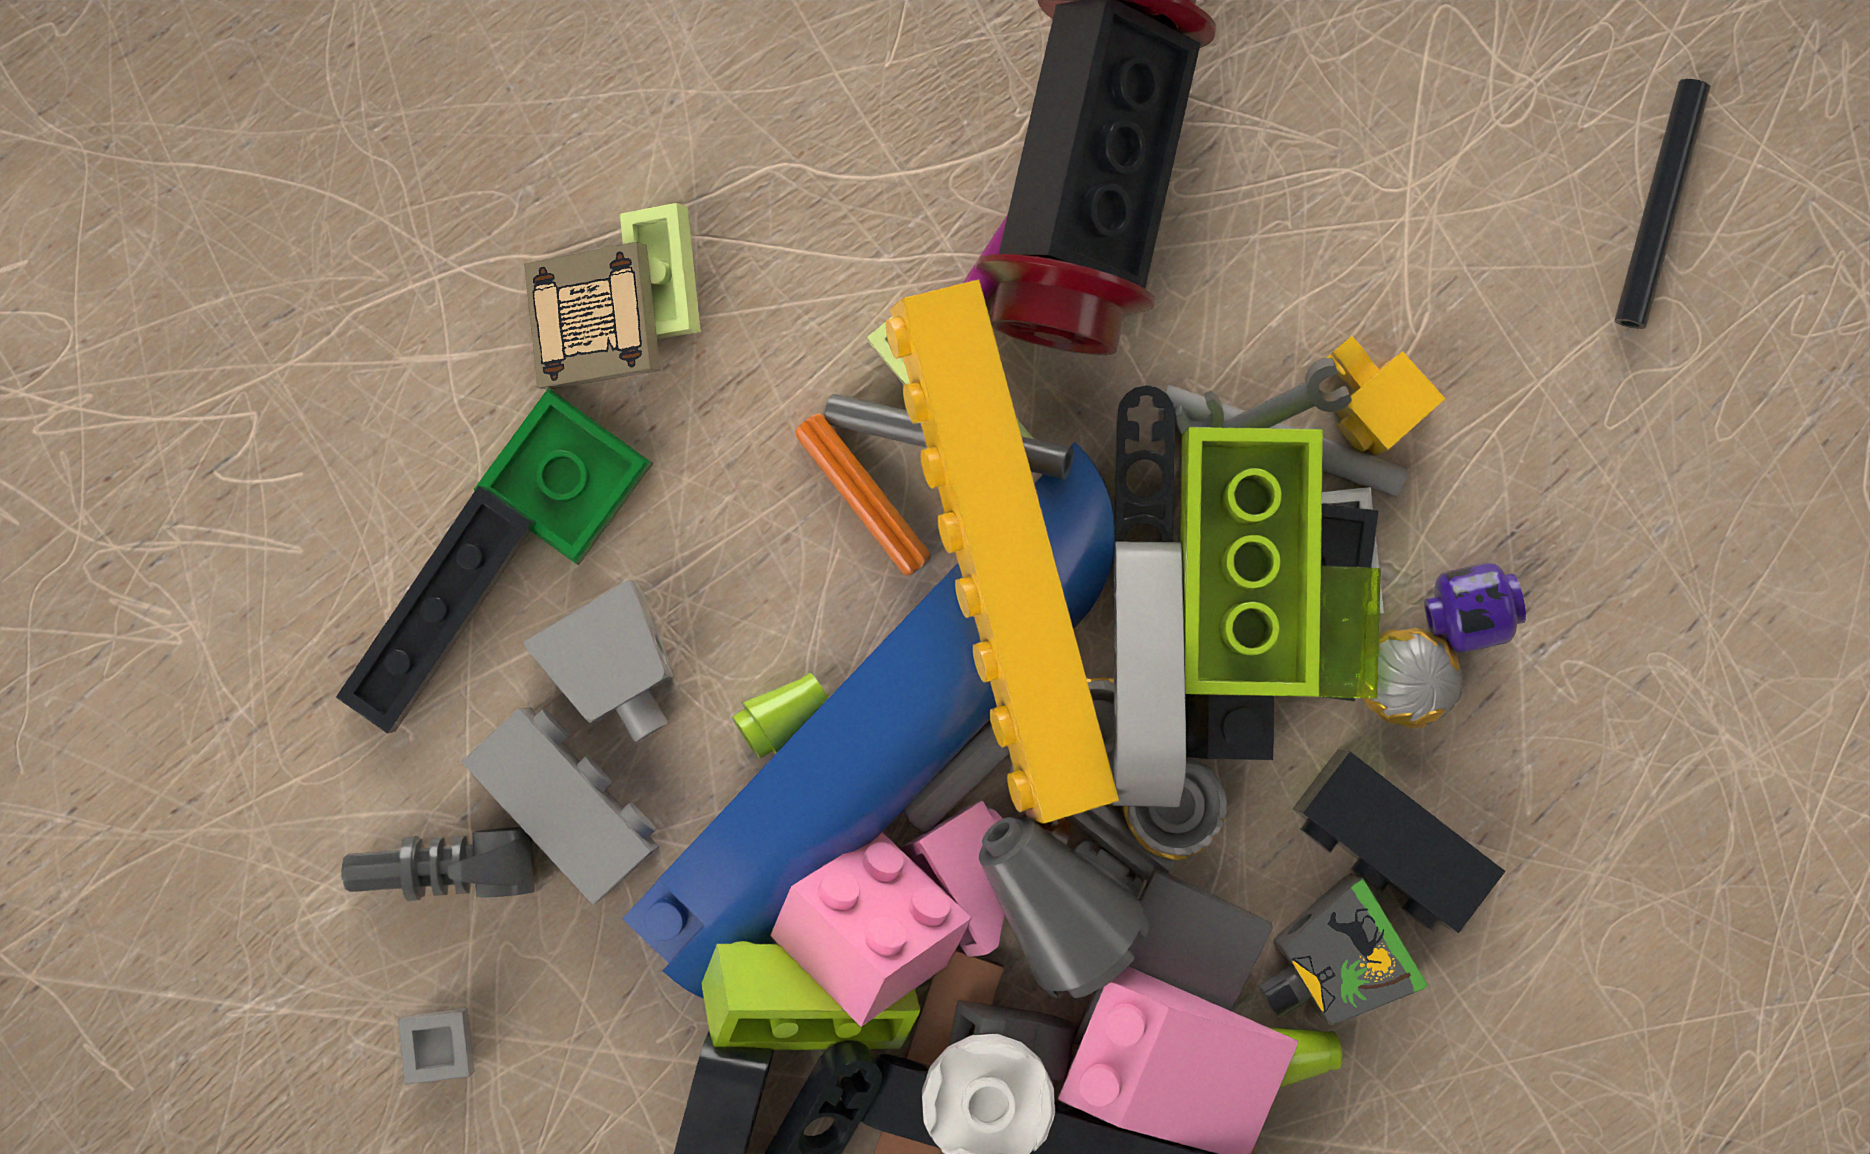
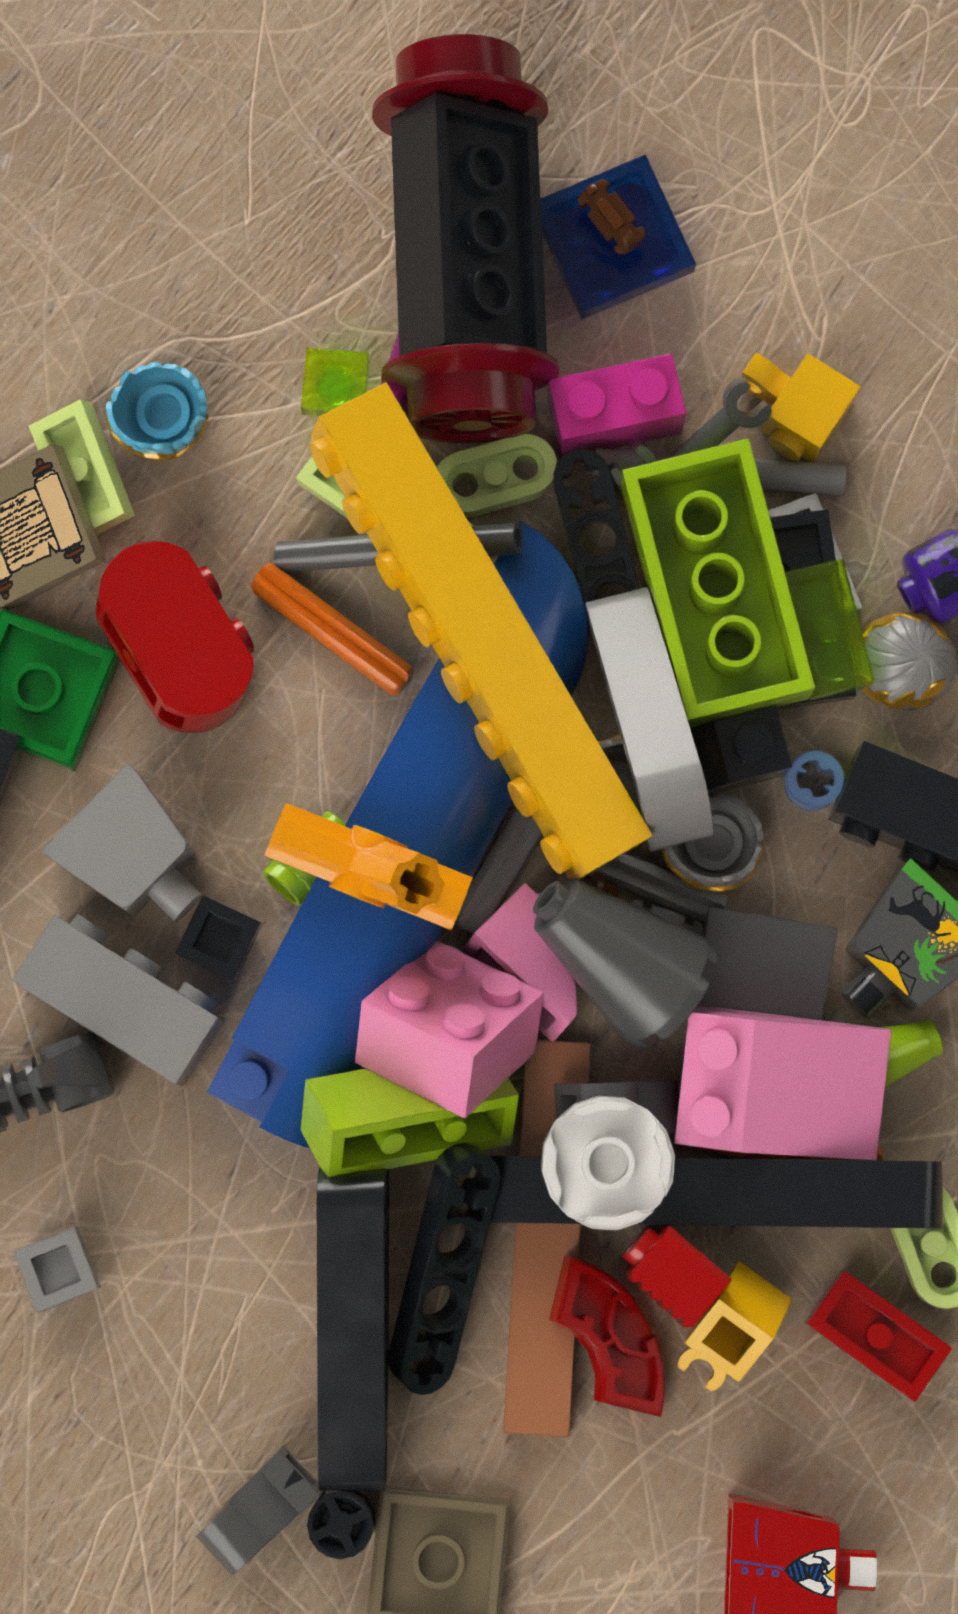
camera: 10 degrees left, 5 degrees down
(673, 769) = (218, 938): none -> black plate
(708, 462) = (175, 636): none -> red brick
(749, 234) = (157, 411): none -> medium azure hair
(833, 759) = (369, 866): none -> light orange piece
(930, 251) = (332, 379): none -> clear neon green plate
(1061, 386) = (493, 473): none -> yellowish green plate
(1199, 350) = (617, 405): none -> dark pink brick
(1244, 179) = (589, 265): none -> clear blue plate
(1247, 161) = (612, 217): none -> reddish brown piece
(1302, 755) = (824, 764): none -> medium blue bush

